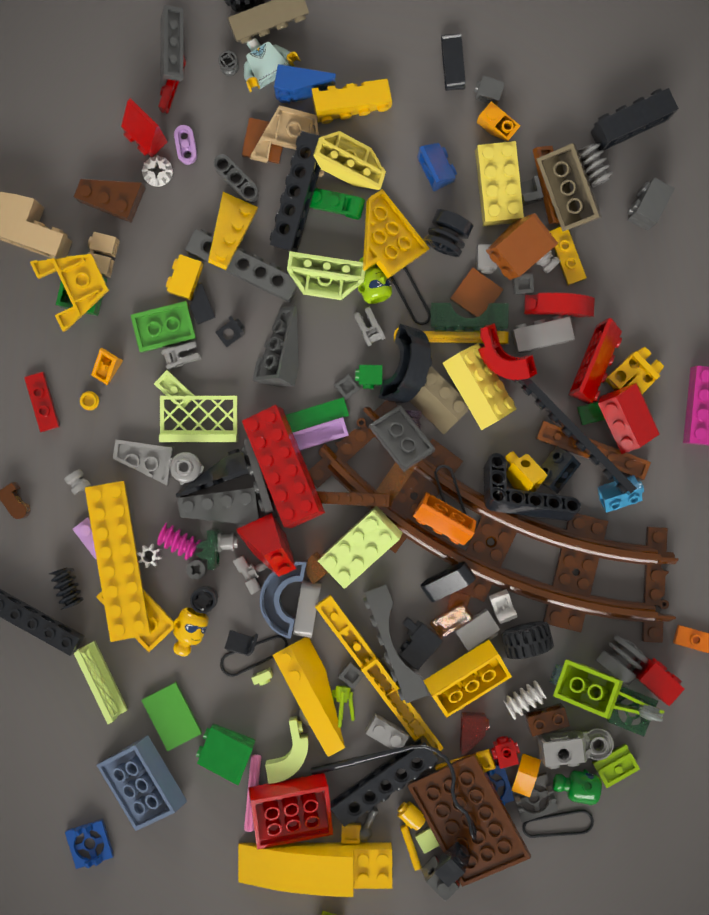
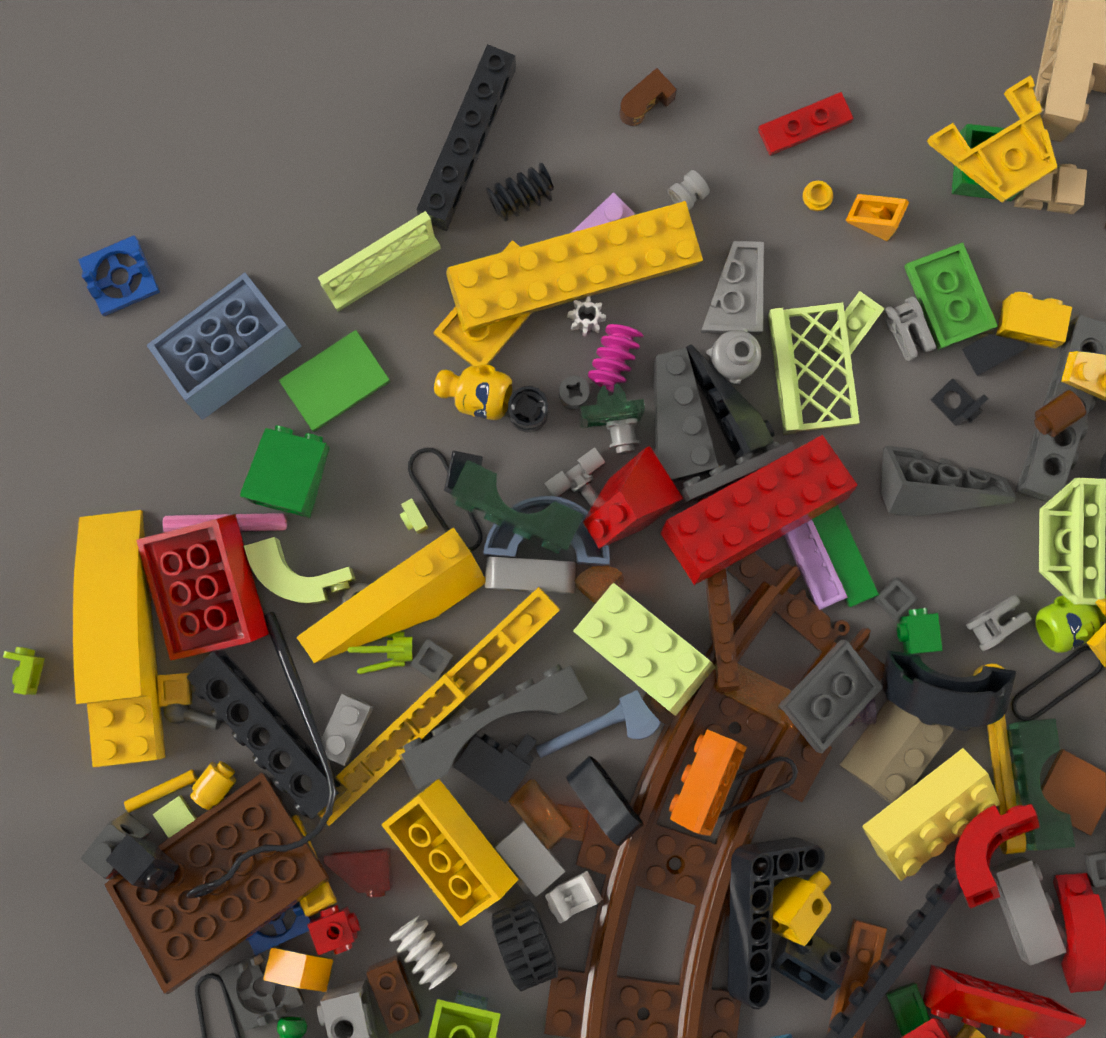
camera: 75 degrees right, 5 degrees down
(246, 274) = (1059, 414): none -> reddish brown brick
(251, 637) = (479, 491): none -> clear green arch
(403, 554) = (639, 723): none -> sand blue piece

